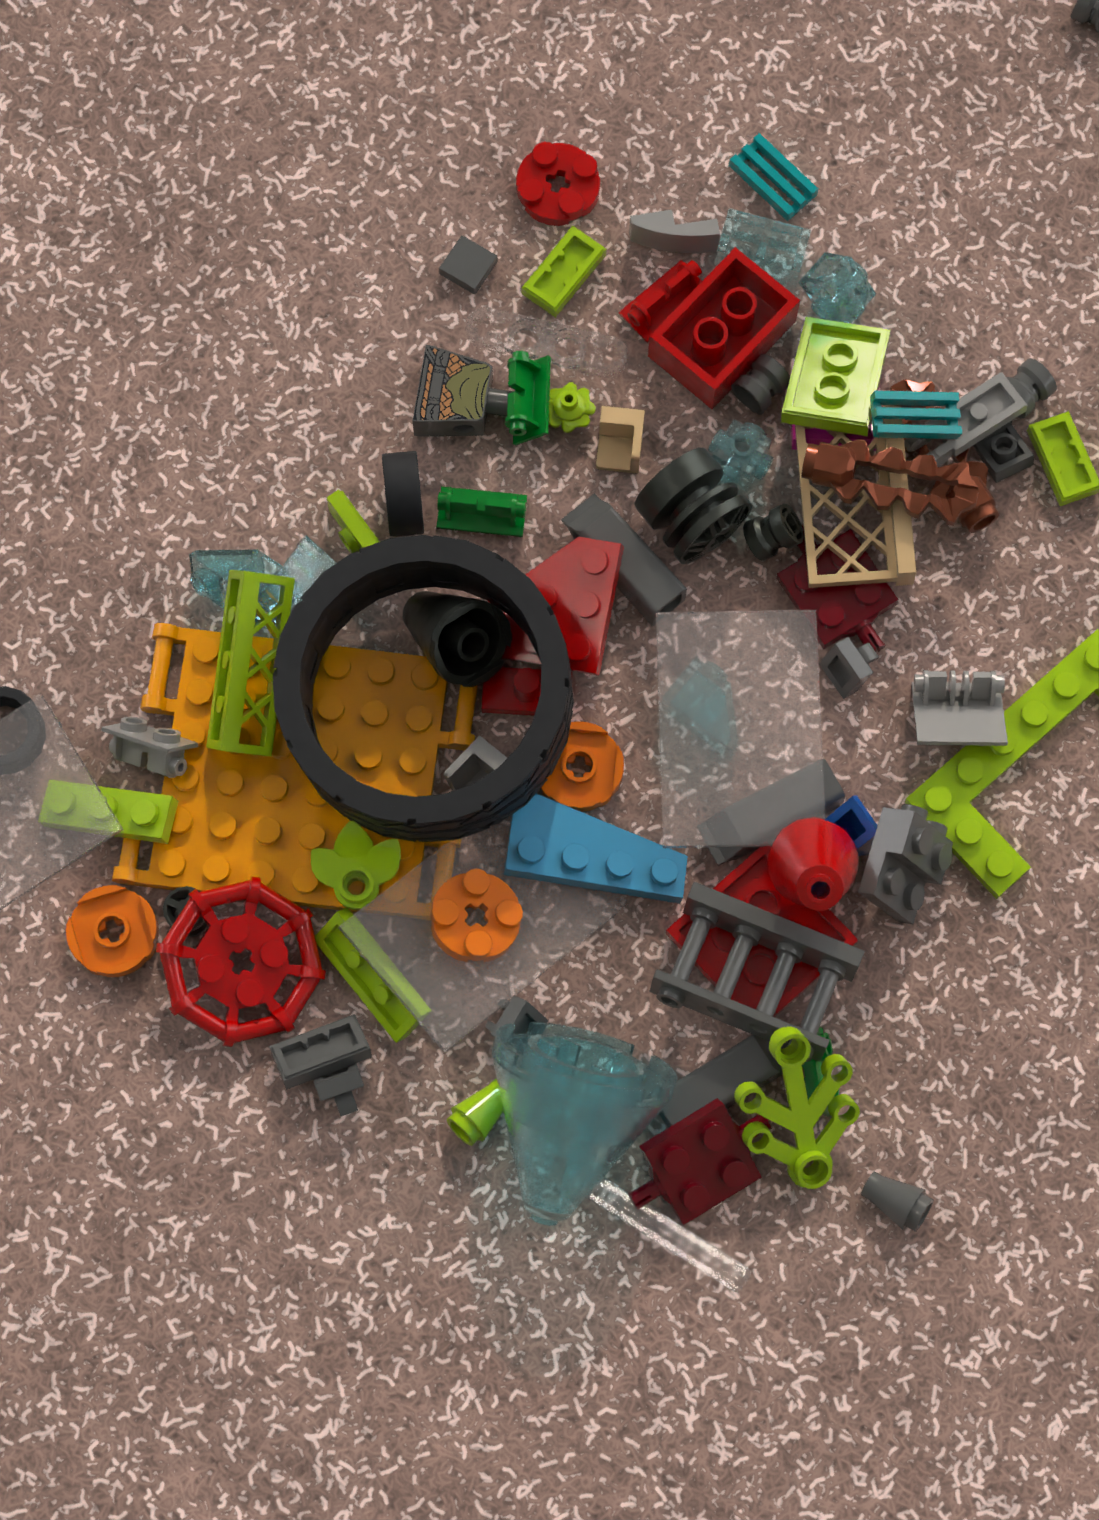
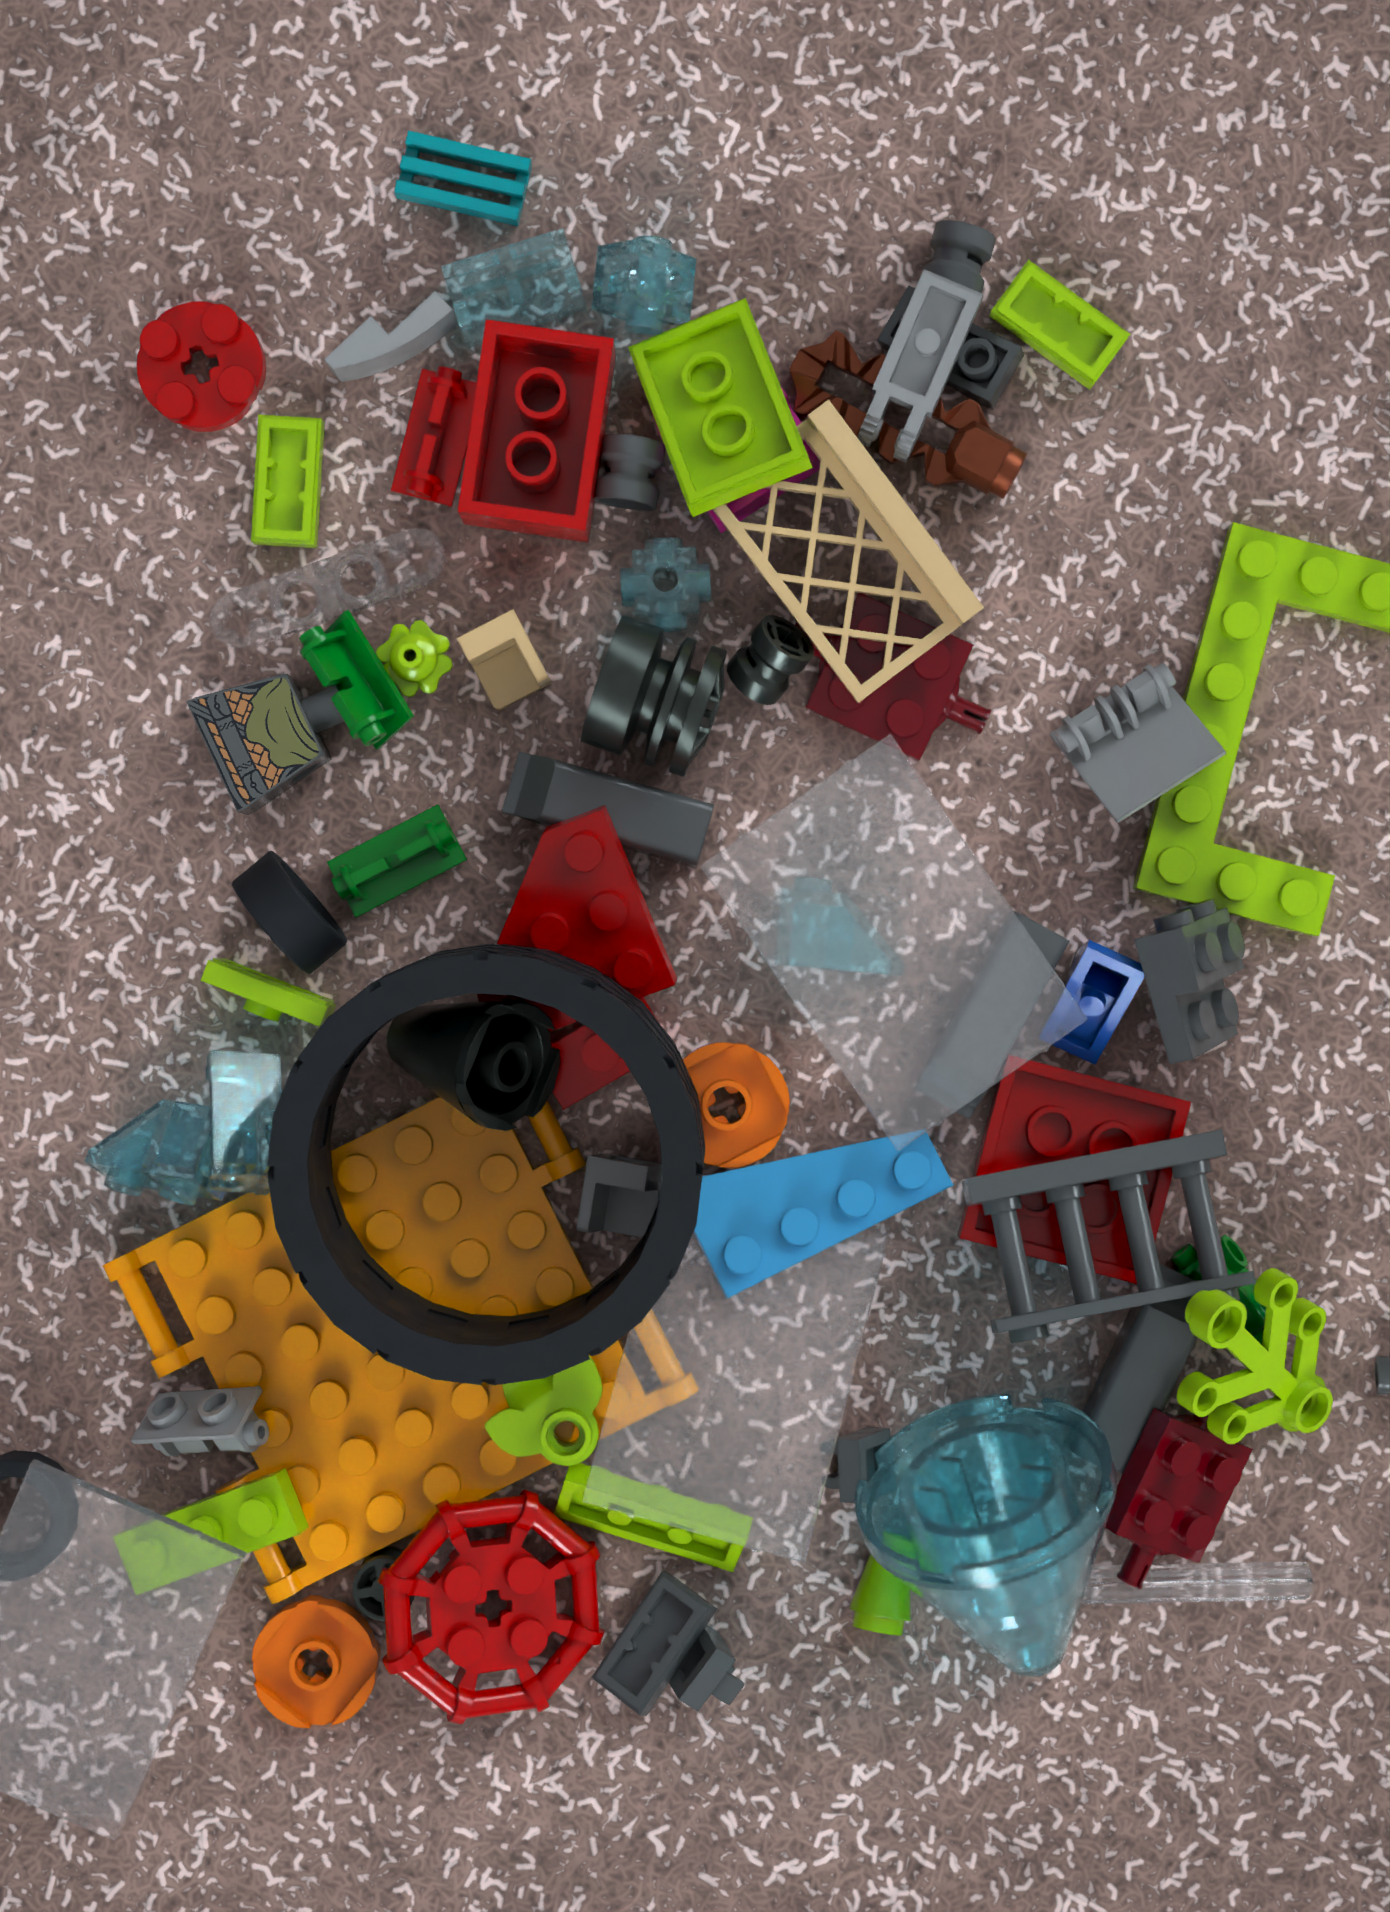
camera: 30 degrees left, 15 degrees up
(234, 662) = (232, 1264): lime fence -> none
(468, 264) = (163, 549): dark grey tile -> none
(475, 942) = (702, 1402): orange plate -> none
(813, 863) = (1101, 1070): red cone -> none
(836, 467) = (802, 534): copper sword -> none
(848, 666) = (967, 769): dark grey tile -> none
(915, 398) = (899, 372): teal tile -> none

